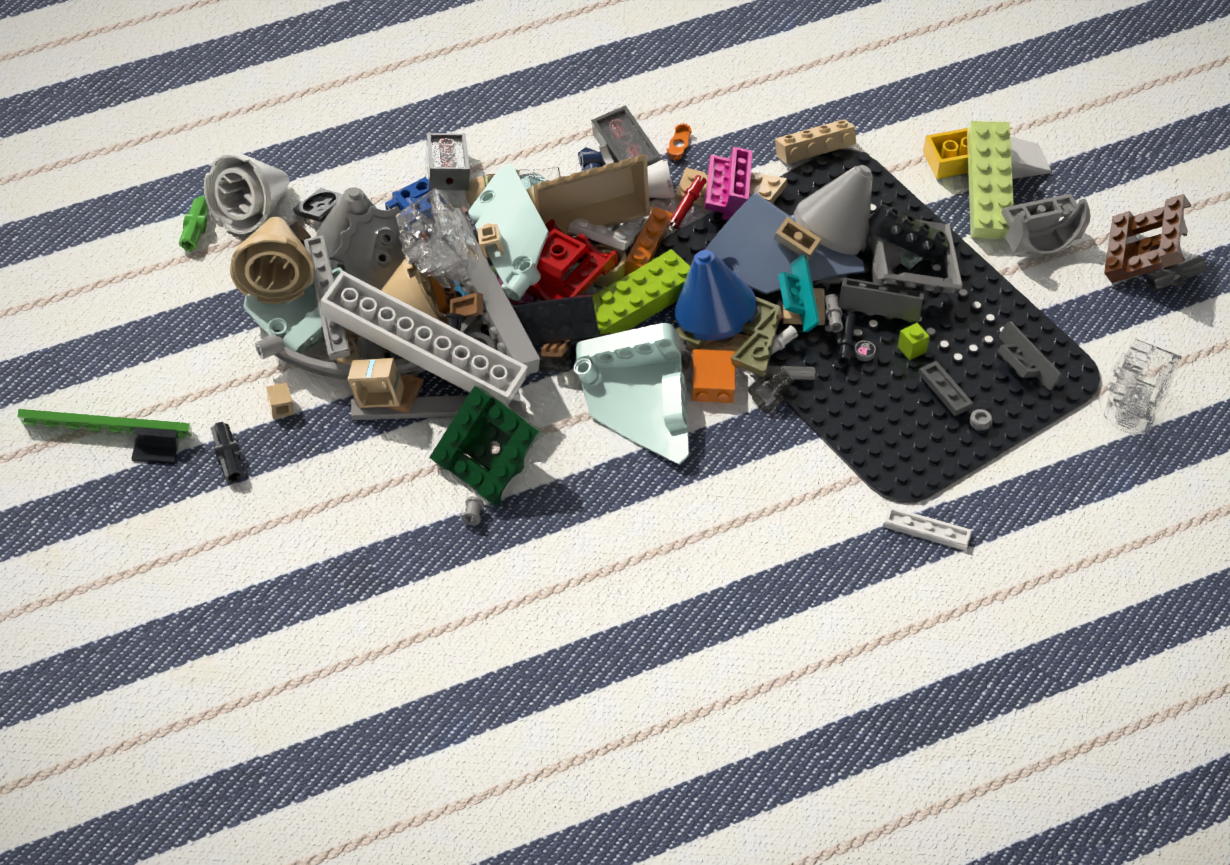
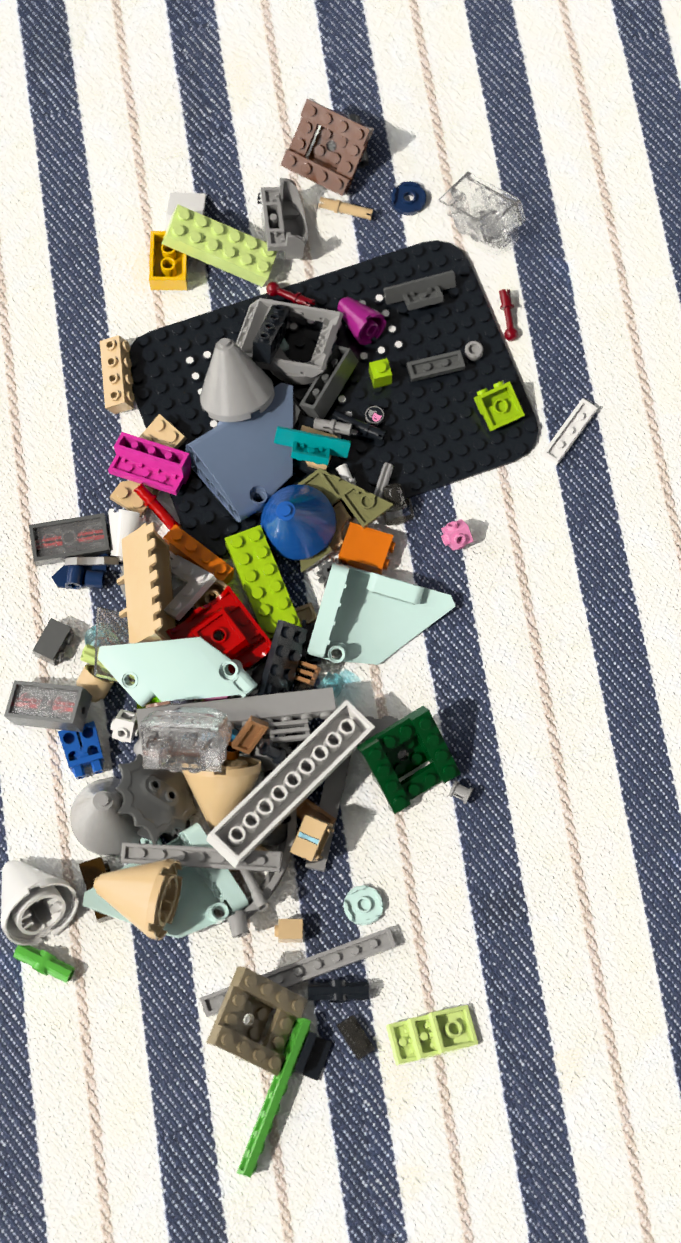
camera: 70 degrees left, 20 degrees up
(151, 379) = (256, 996): none -> dark tan piece
(183, 479) = (355, 1037): none -> clear smoke plate
(202, 540) = (432, 1035): none -> yellowish green slope
(239, 418) = (315, 965): none -> light grey plate
(303, 349) = (256, 893): none -> light grey piece
(316, 213) = (46, 847): black piece -> none
(325, 457) = (363, 905): none -> light aqua tile
(476, 324) = (304, 722): none -> light grey tile
(489, 235) = (202, 692): tan window -> none
(520, 155) = (53, 642): none -> dark grey brick
(548, 379) = (335, 681): none -> clear light blue brick
(682, 134) = (63, 487): orange piece -> none
(759, 446) = (456, 535): none -> bright pink brick
(797, 238) = (259, 427): tan brick -> none
(924, 449) = (498, 405): none -> lime plate
(963, 313) = (362, 320): none -> magenta cone
(966, 260) = (274, 289): none -> dark red pin
(1021, 453) = (511, 332): none -> dark red pin
(1092, 276) = (346, 208): none -> tan pin
(1133, 323) = (408, 207): none -> dark blue tile

